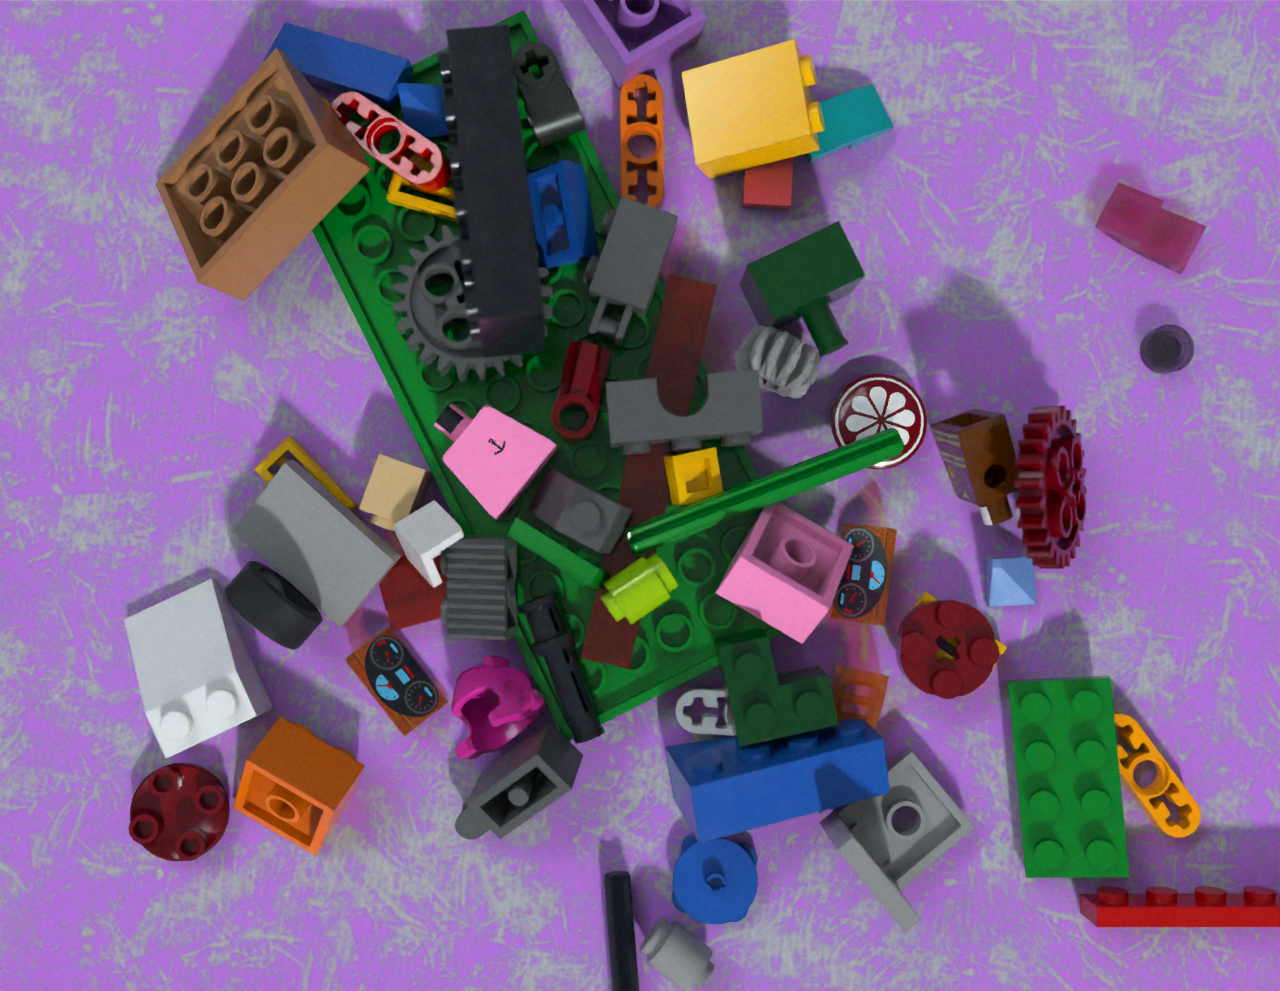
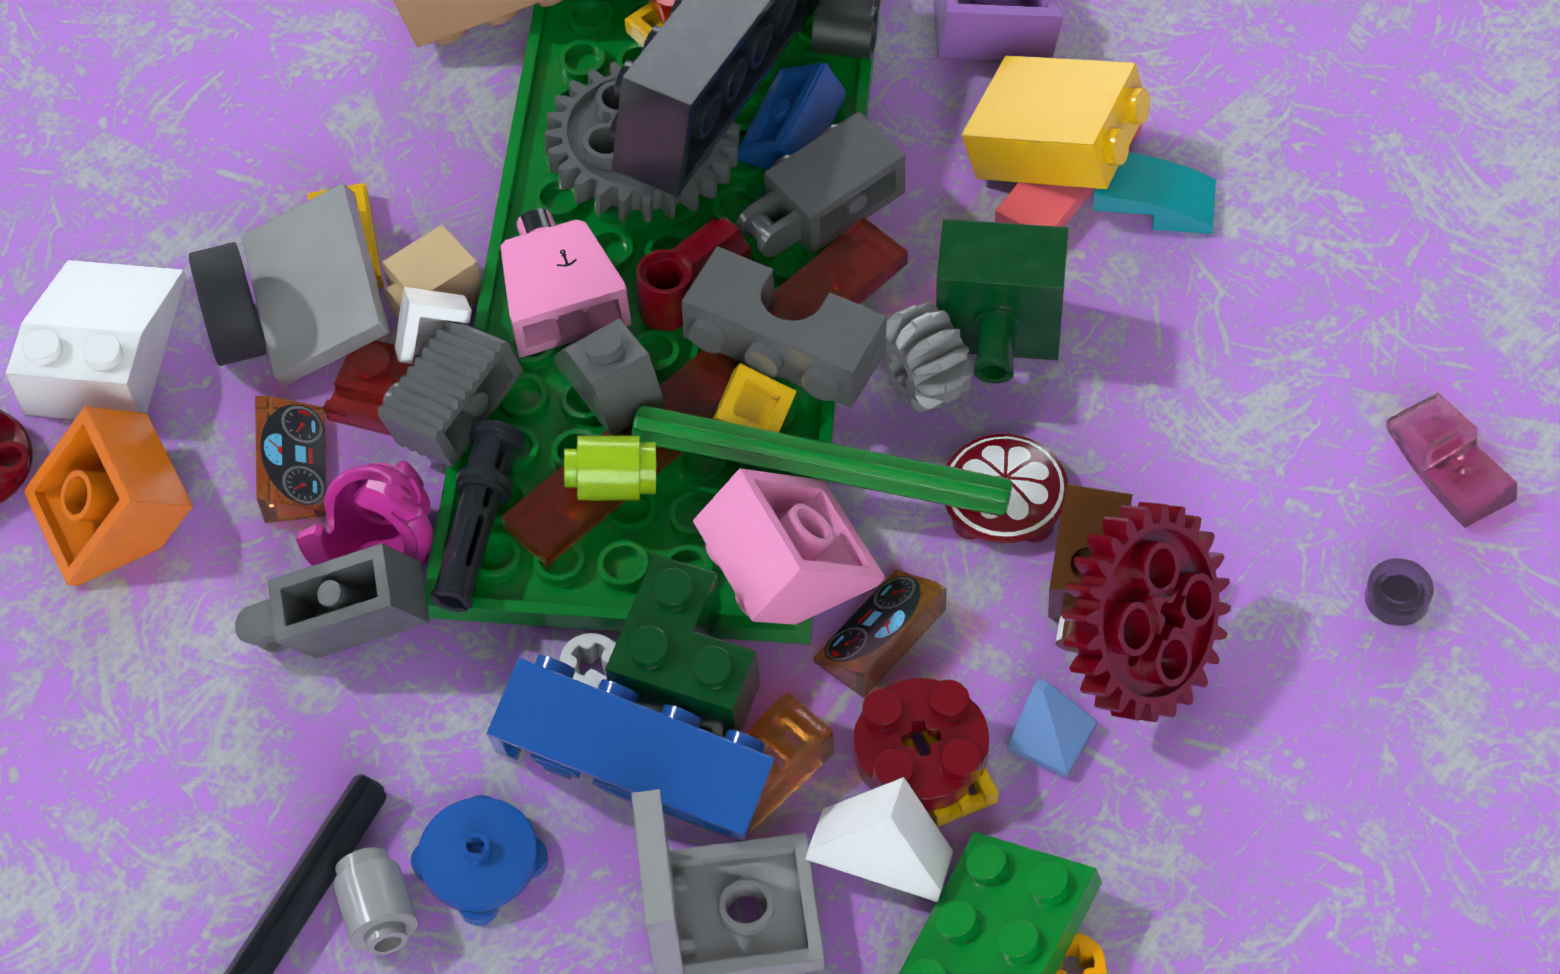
camera: 35 degrees right, 30 degrees down
(558, 554) = (550, 392): green tile -> none
(654, 112) = (928, 92): orange beam -> none
(961, 731) = (885, 840): none -> white slope

